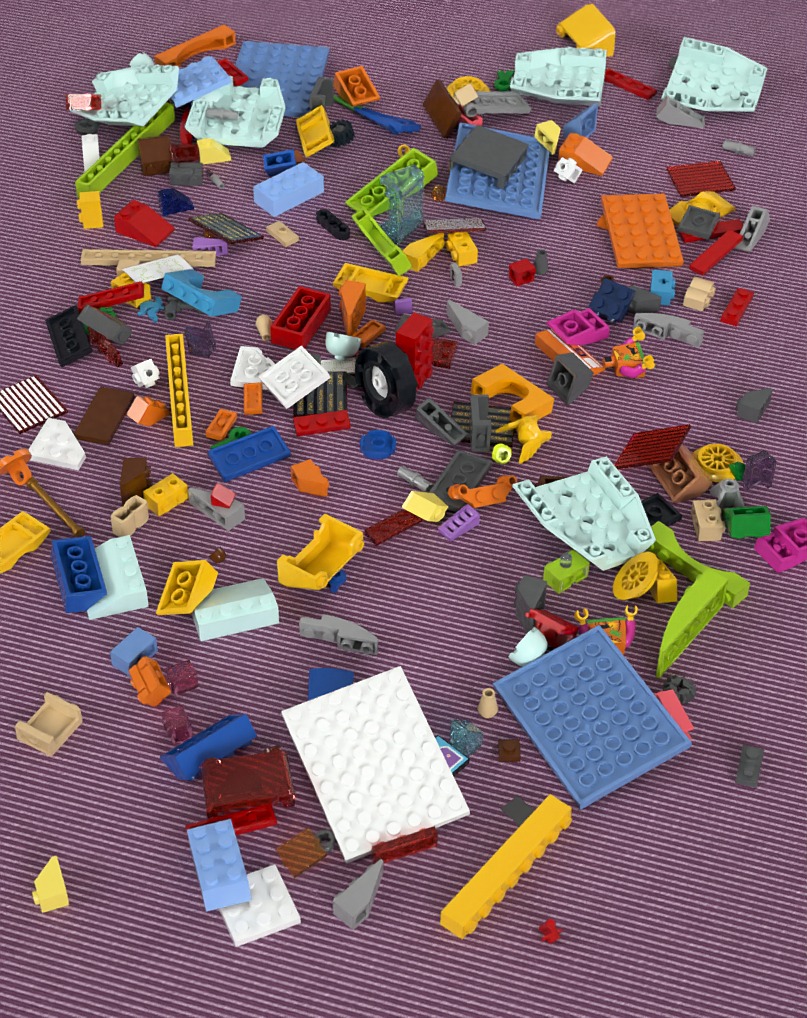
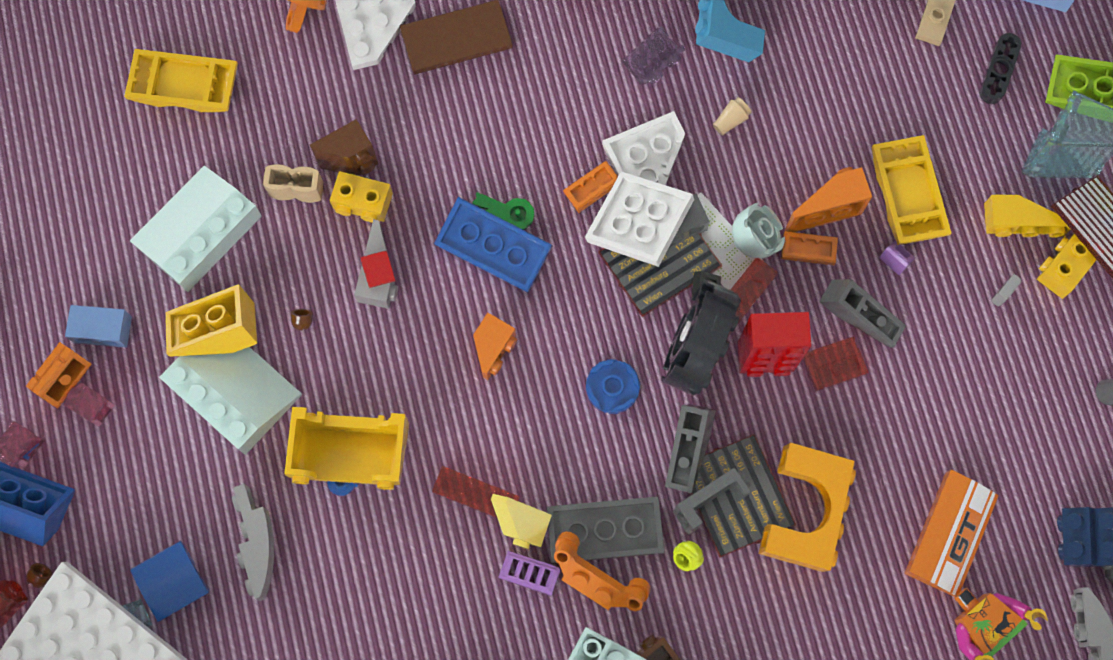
camera: 60 degrees right, 30 degrees up
(33, 484) = (250, 138): pearl gold bar -> none
(77, 573) = (170, 186): blue slope -> none
(145, 373) = (546, 36): white brick -> none
(147, 411) = (487, 82): orange slope -> none
(179, 390) = (542, 93): yellow brick -> none
(221, 424) = (522, 180): orange plate -> none
(300, 318) = (772, 150): red brick -> none
(321, 423) = (604, 295): red plate -> none
(389, 251) = (968, 197): lime arch -> none
(414, 479) = (575, 471): light grey pin -> none
(469, 325) = (912, 371): light grey slope -> none
(521, 272) = (1076, 375): red brick -> none
(528, 435) = (744, 574): yellow helmet -> none
(569, 377) = (889, 568): dark grey slope -> none
(579, 327) = (1007, 519): dark pink slope -> none

